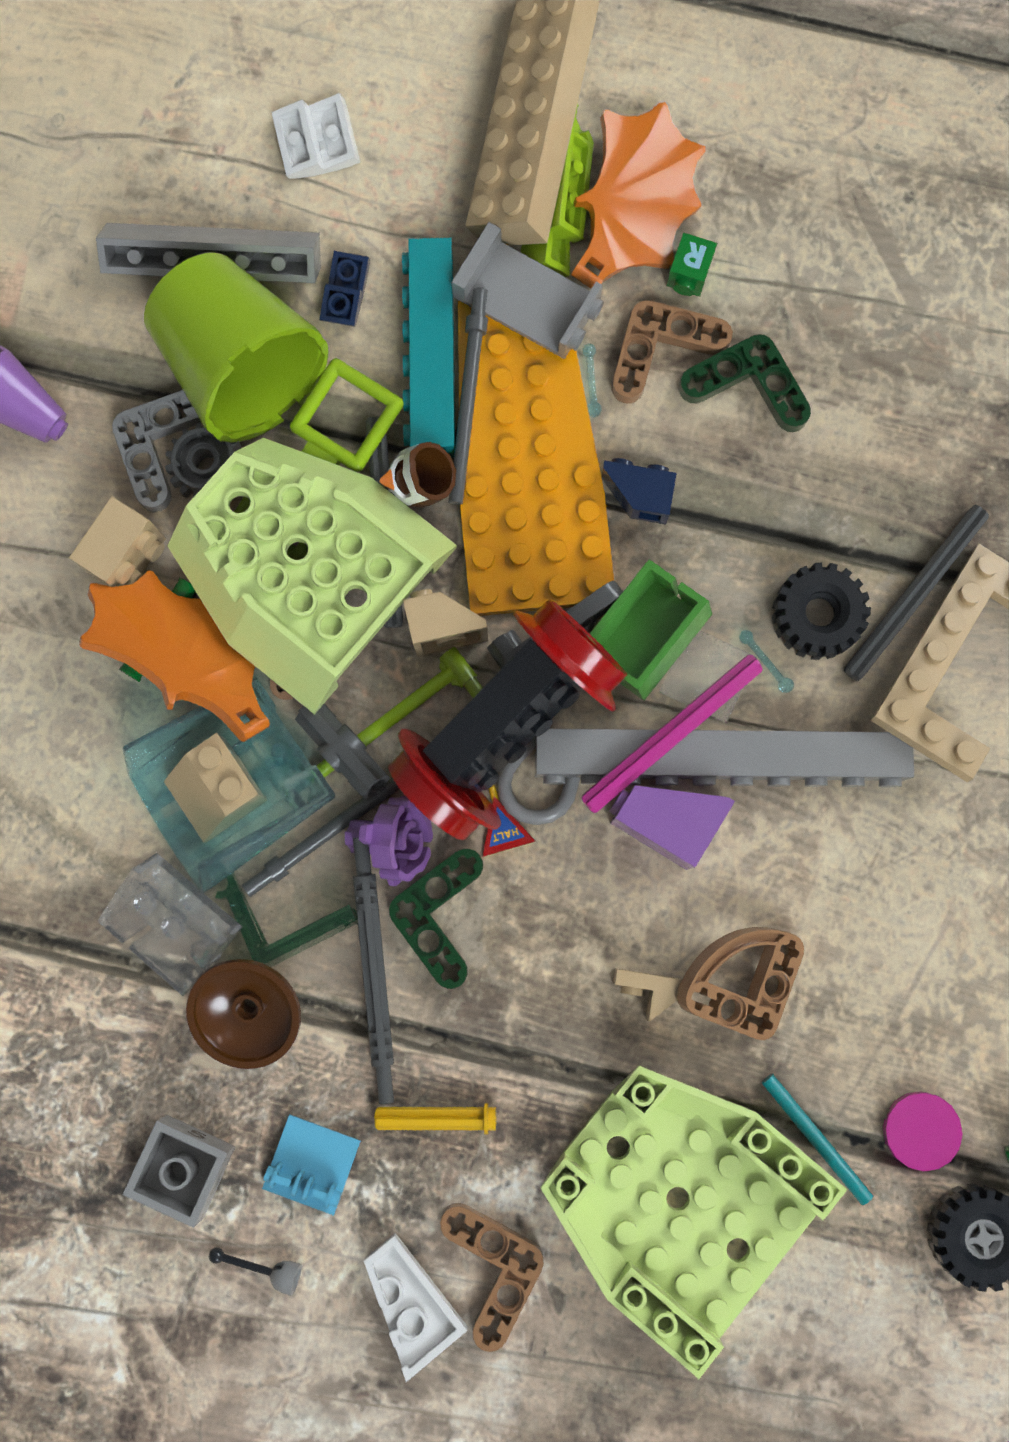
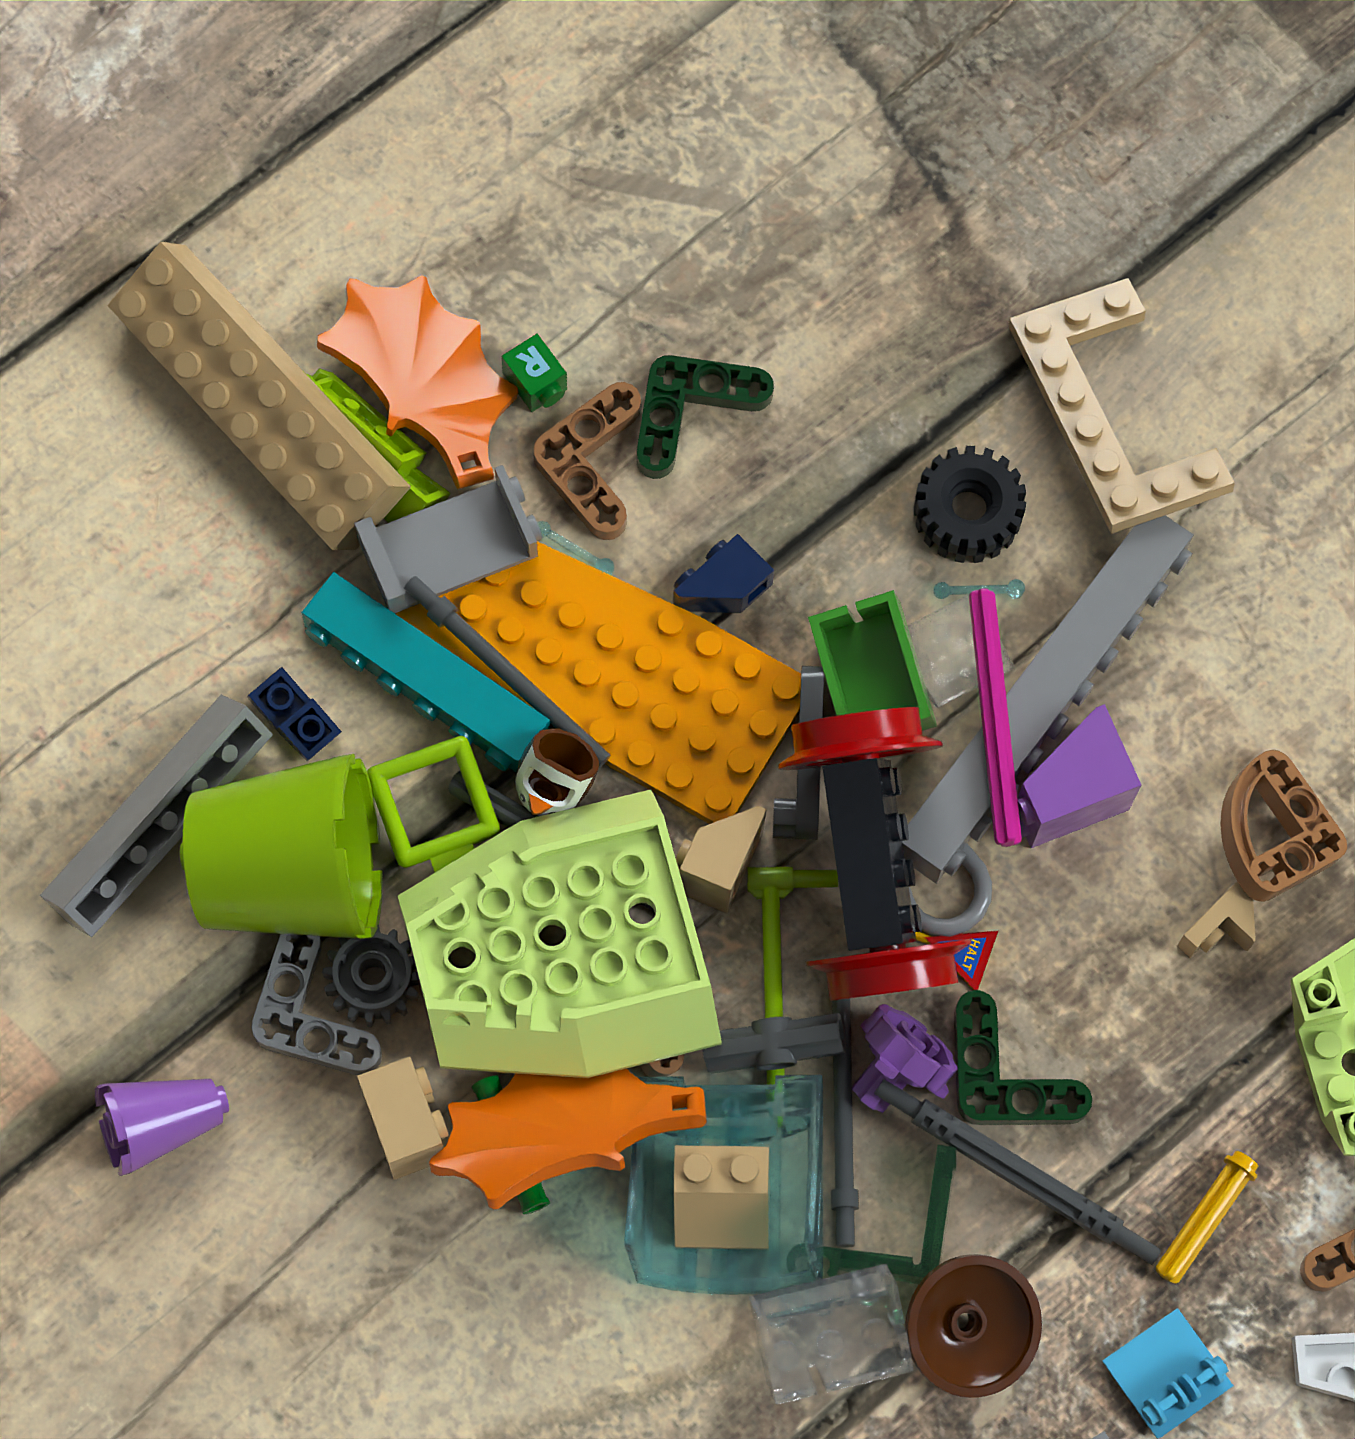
camera: 60 degrees left, 10 degrees down
(315, 137) = (109, 630): white slope -> none
(916, 593) = (1015, 408): dark grey axle -> none

